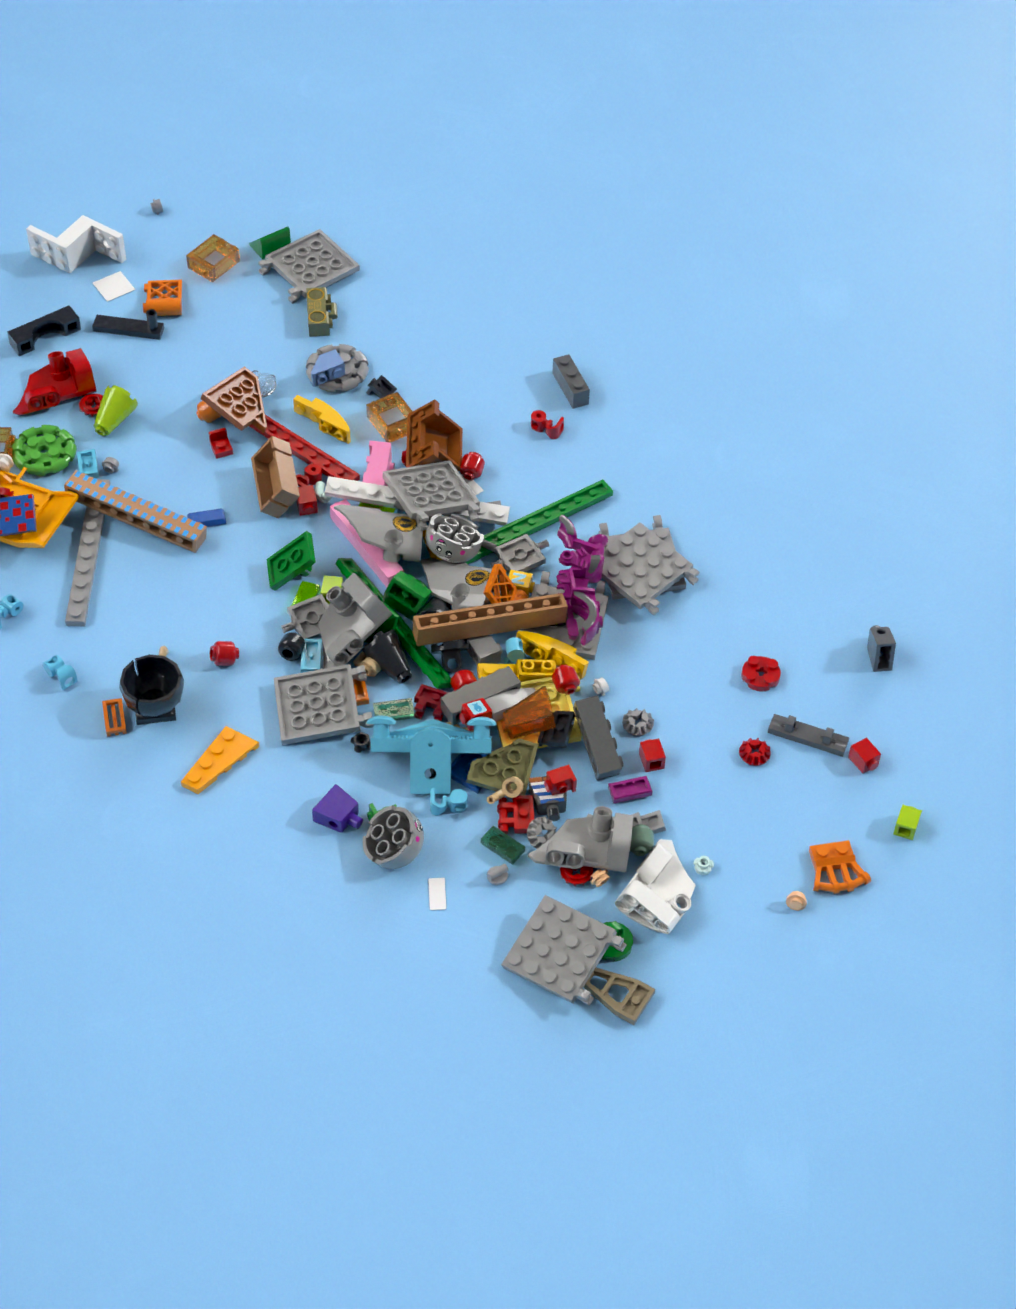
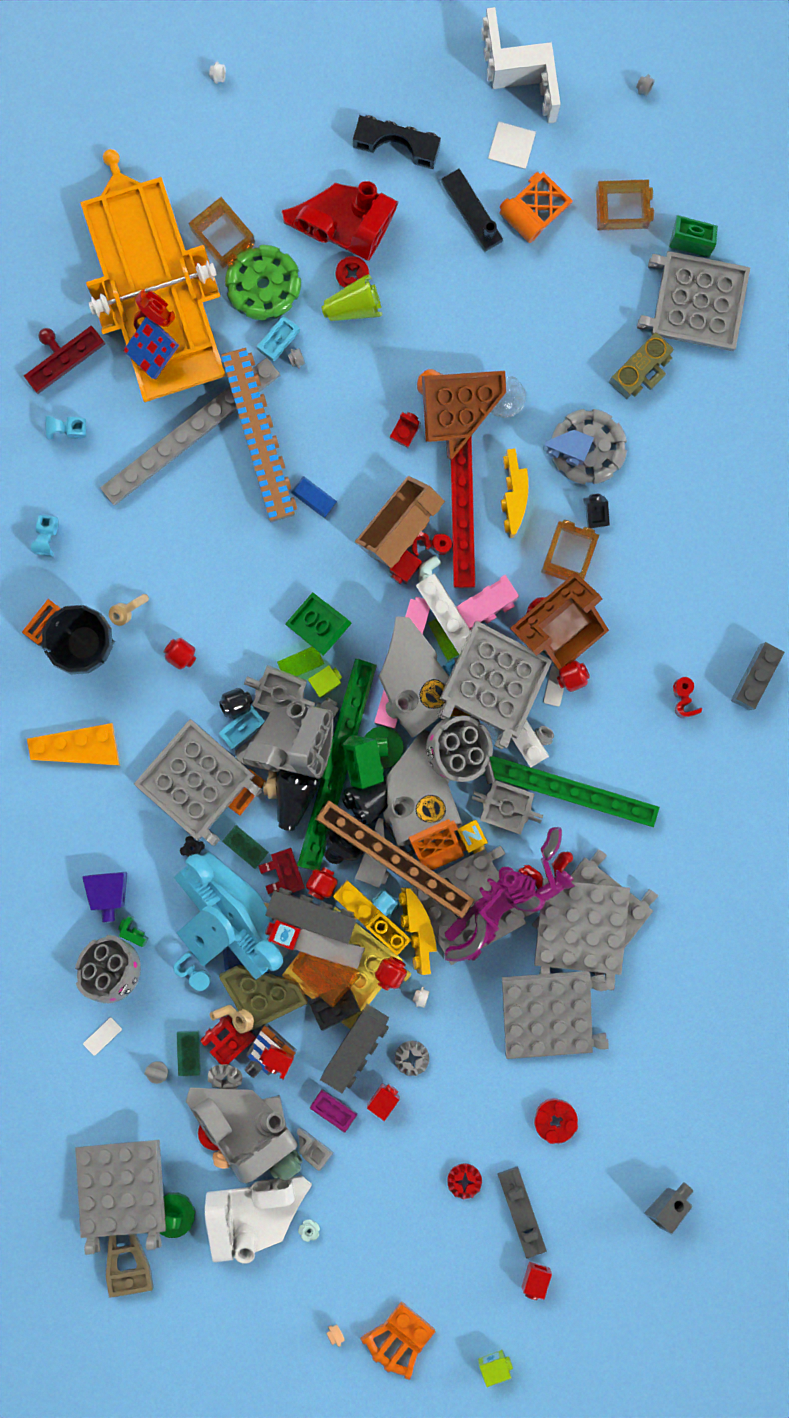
camera: 45 degrees right, 35 degrees up
(682, 620) = (550, 1014): none -> light grey plate

